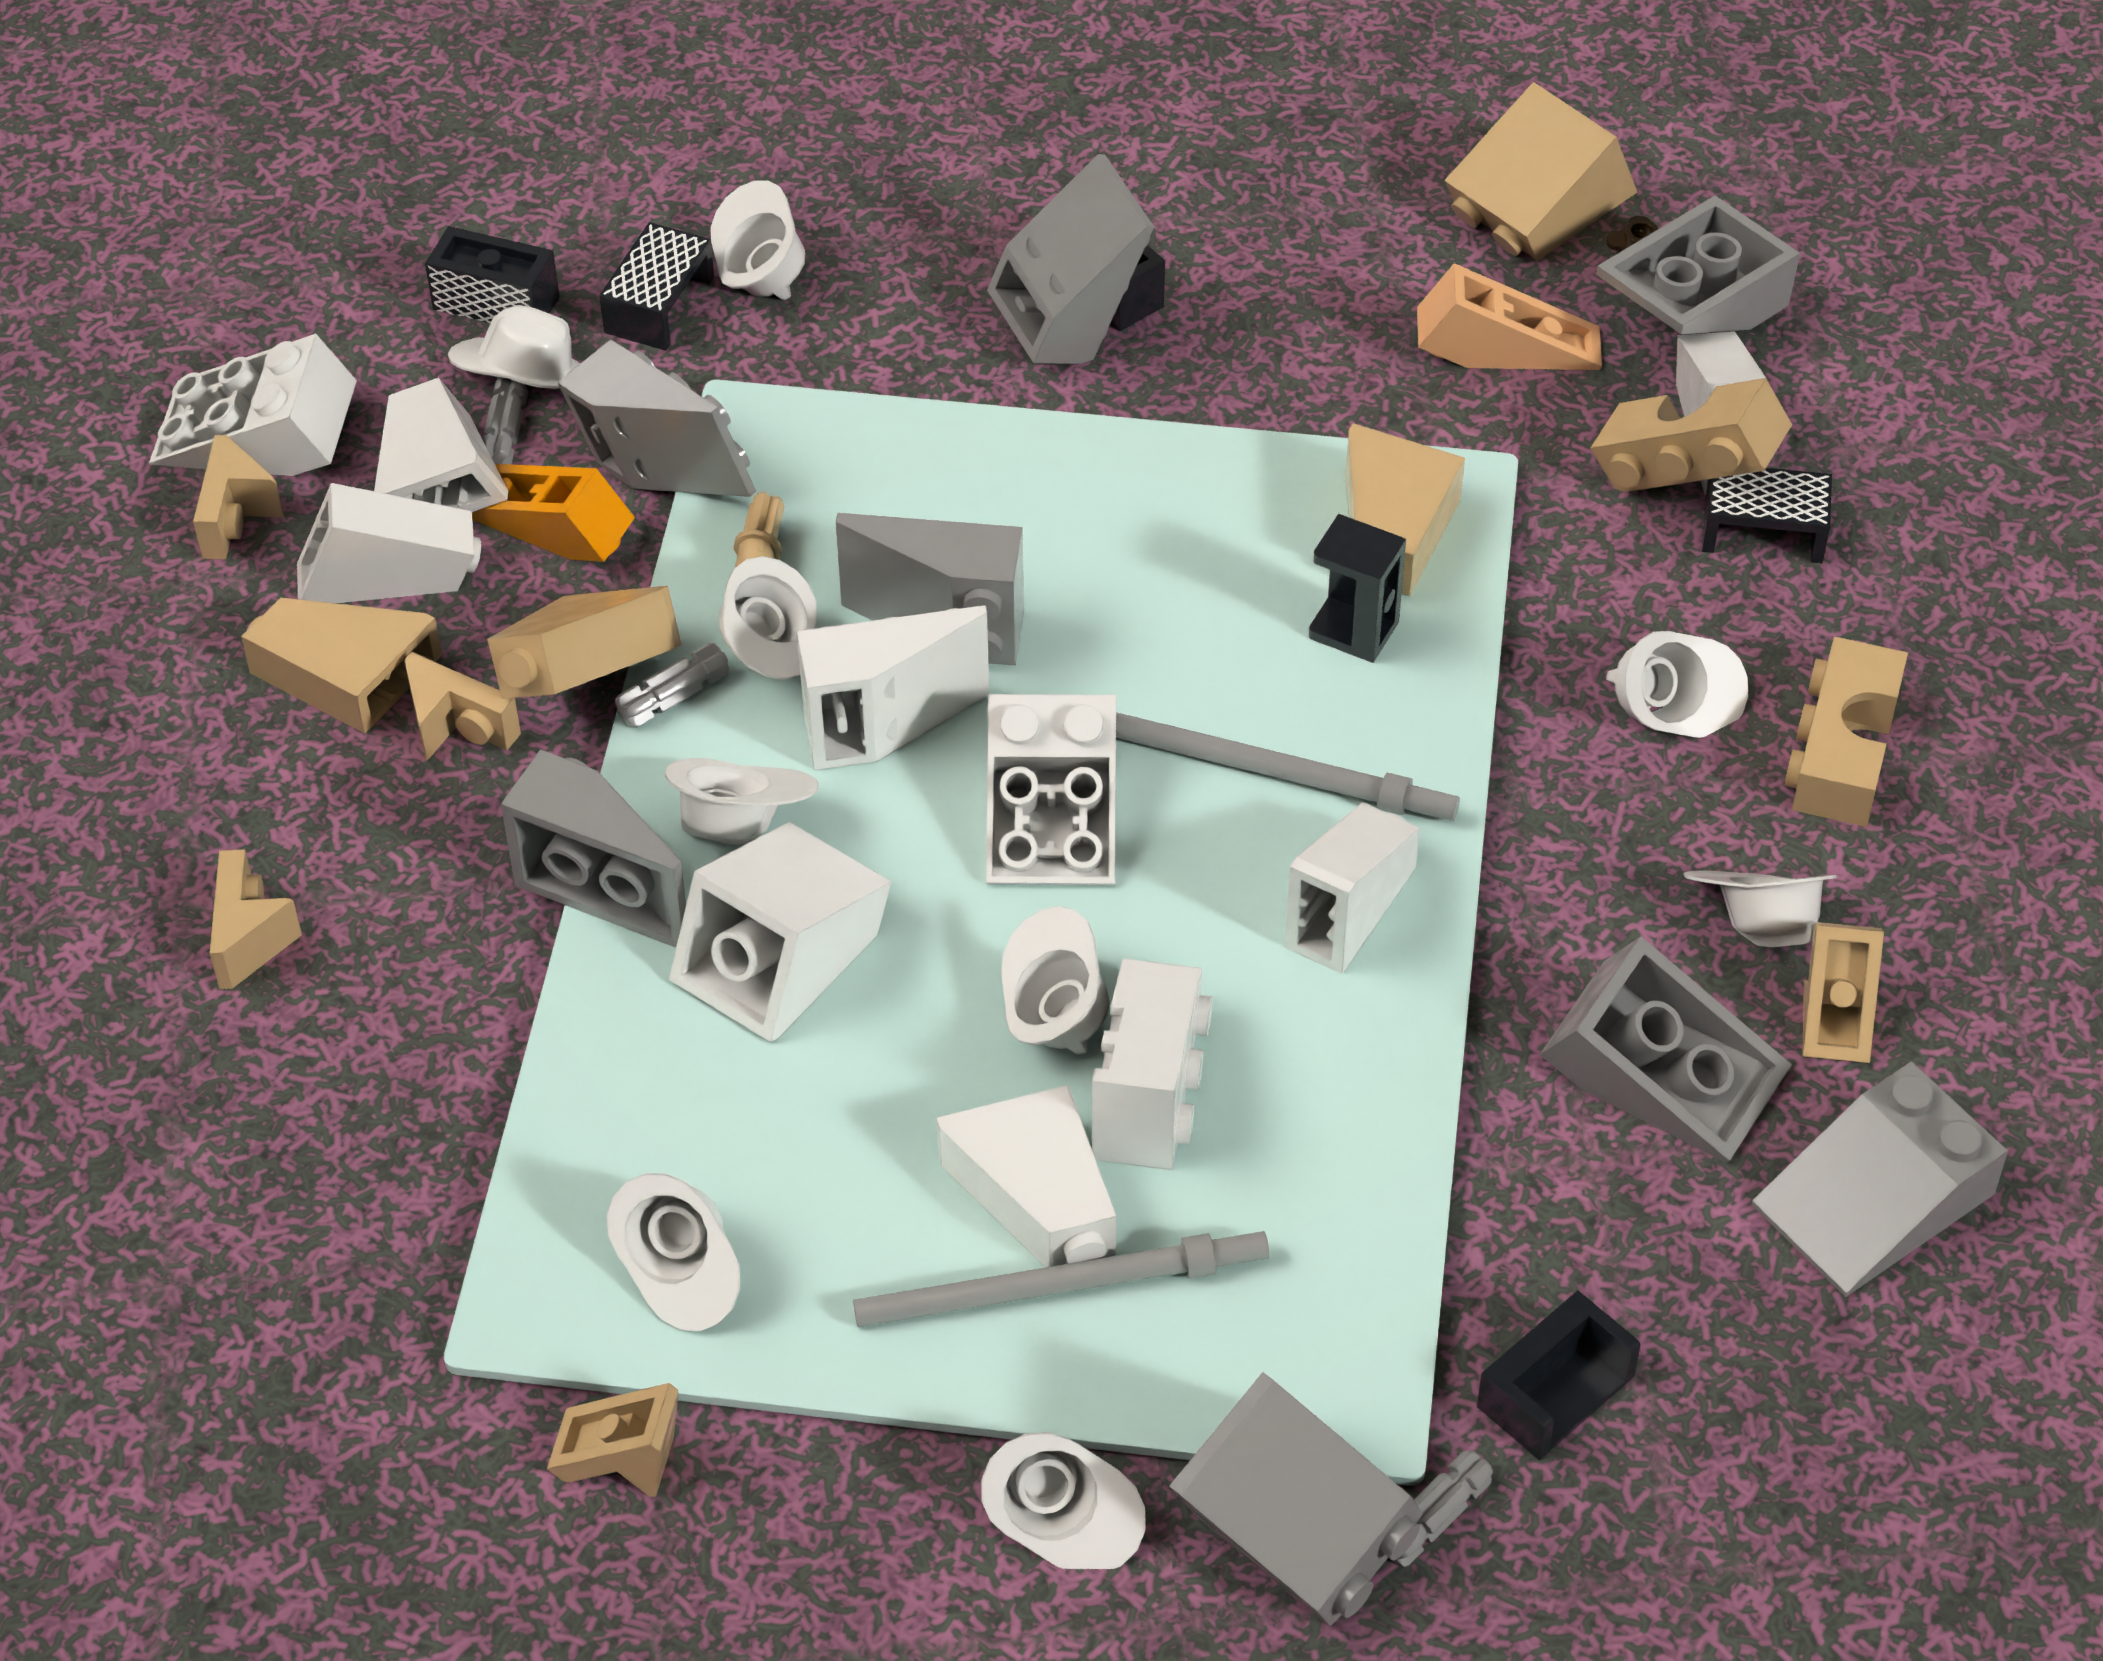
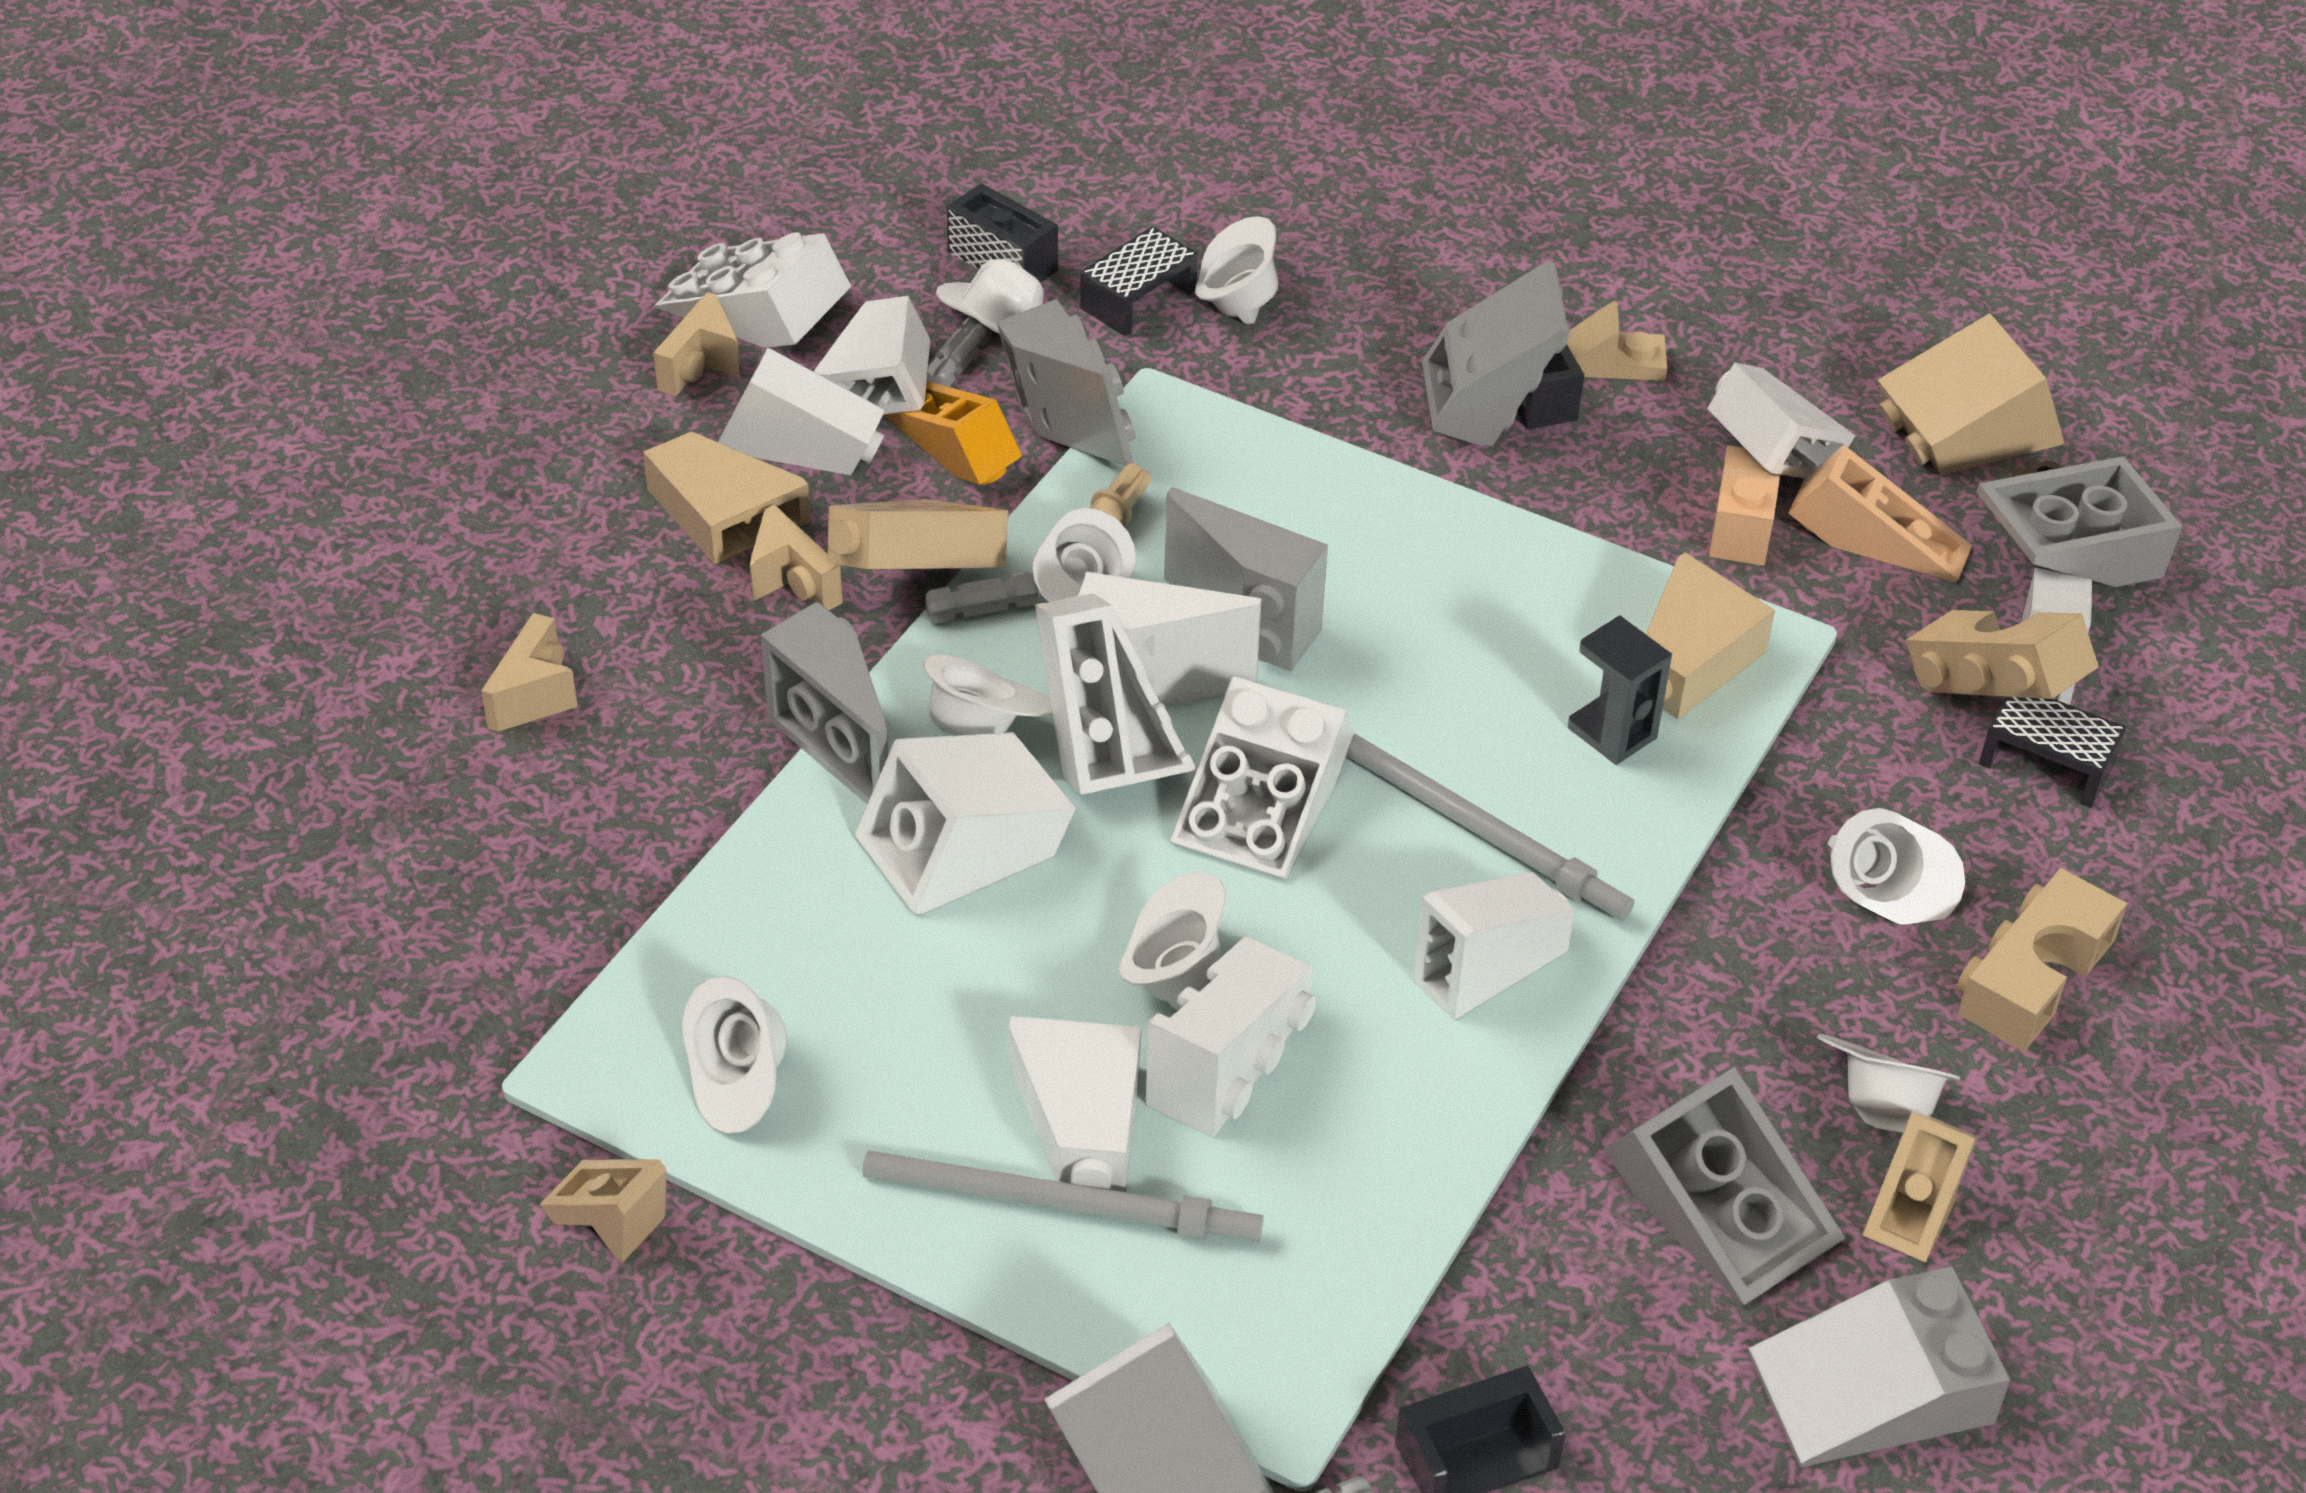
camera: 20 degrees right, 5 degrees down
(870, 760) = (1101, 701): none -> white wedge
(1092, 1504) = (952, 1357): white piece -> none
(1180, 220) = (1612, 354): none -> tan slope
(1367, 255) = (1775, 422): none -> white slope
(1372, 348) = (1744, 509): none -> light nougat slope

